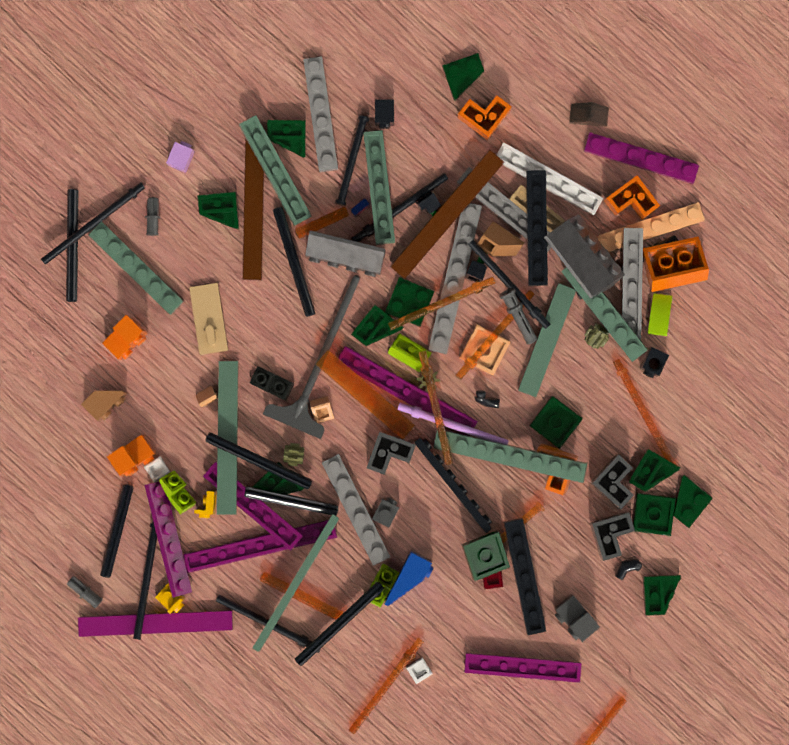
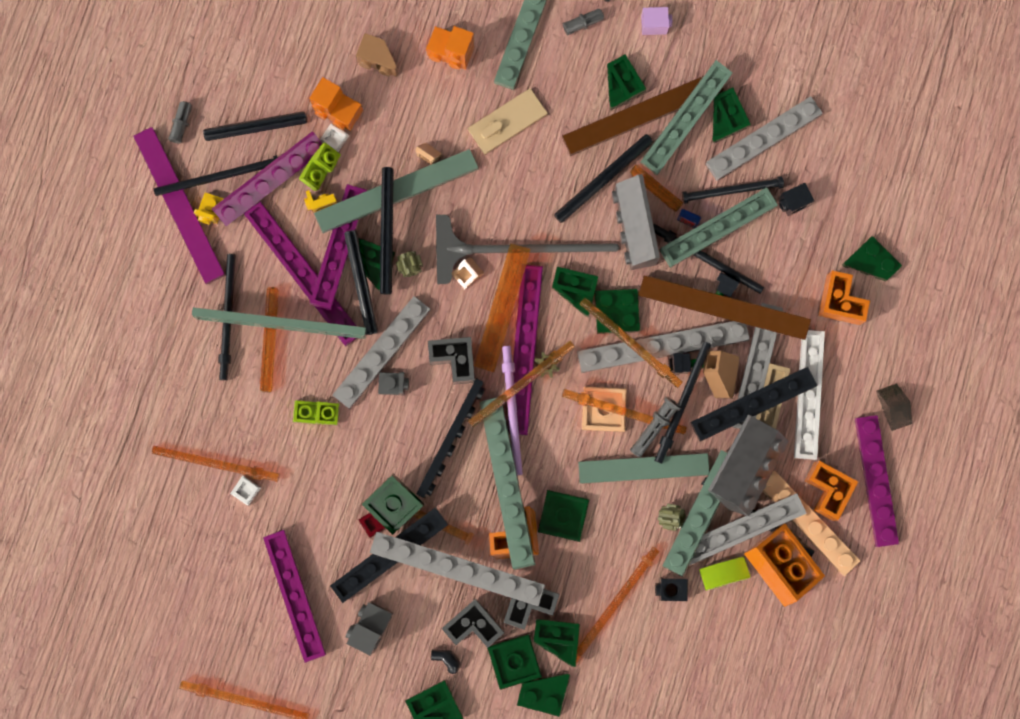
camera: 60 degrees right, 5 degrees down
(271, 383) = (471, 211): pearl dark grey slope -> none
(339, 623) = (257, 386): black axle -> none
(407, 352) = (566, 329): lime slope -> none
(412, 573) = (343, 436): blue slope -> none
(486, 401) = (551, 434): black arm -> none
(561, 527) = (457, 568): none -> light grey plate

